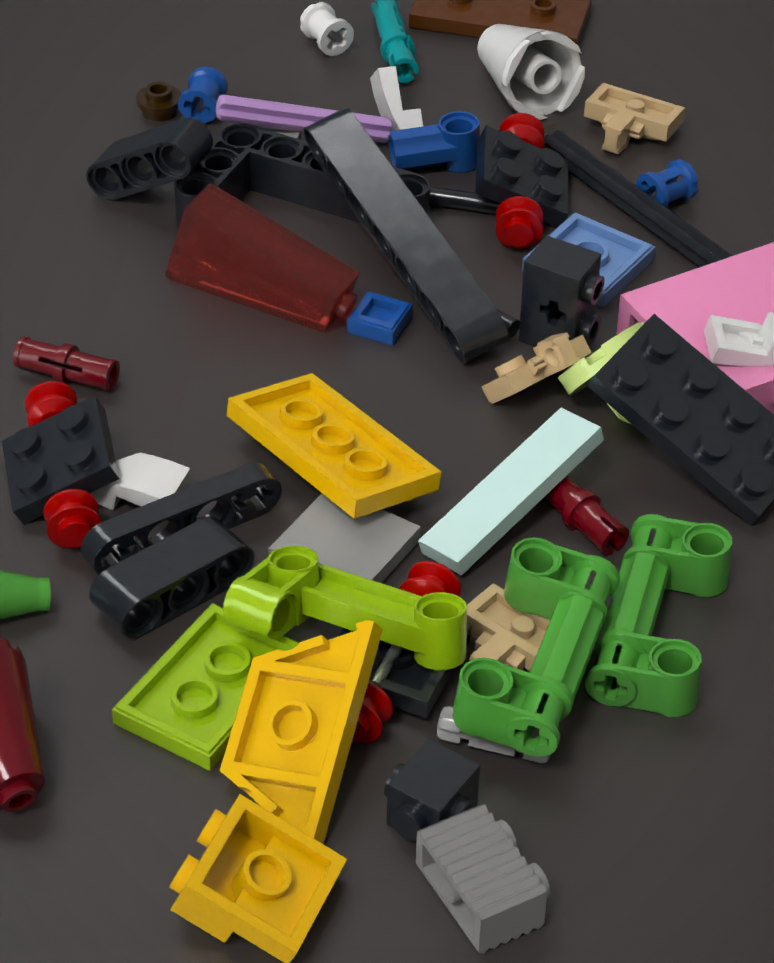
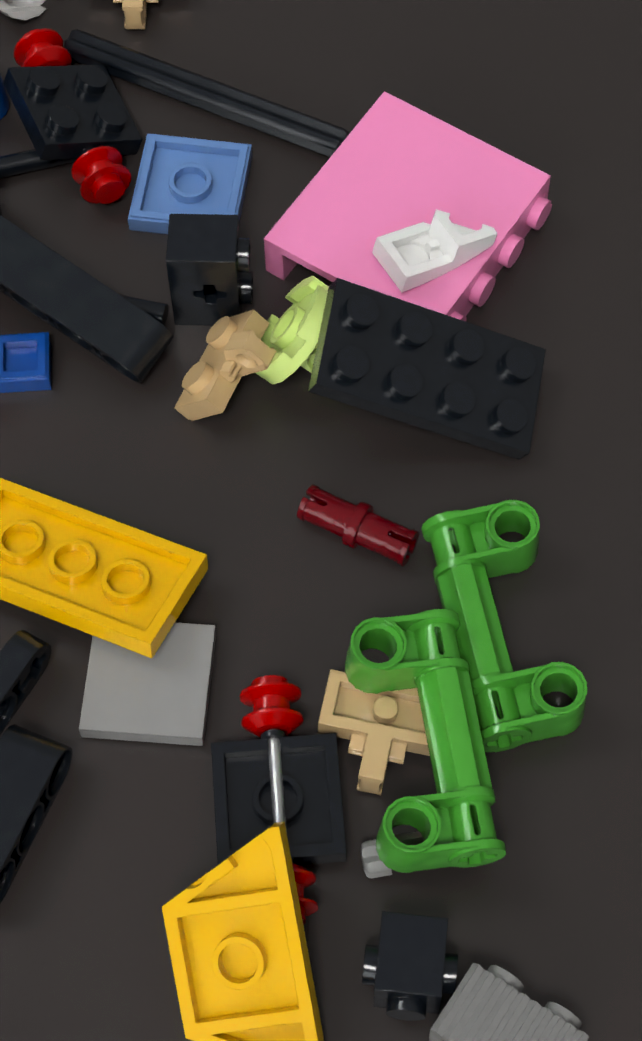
camera: 25 degrees left, 20 degrees up
(195, 689) = (107, 931): lime tile -> none
(296, 586) = (215, 773): lime piece -> none
(510, 491) = (284, 542): light aqua tile -> none
(666, 184) = (222, 57): blue bush -> none

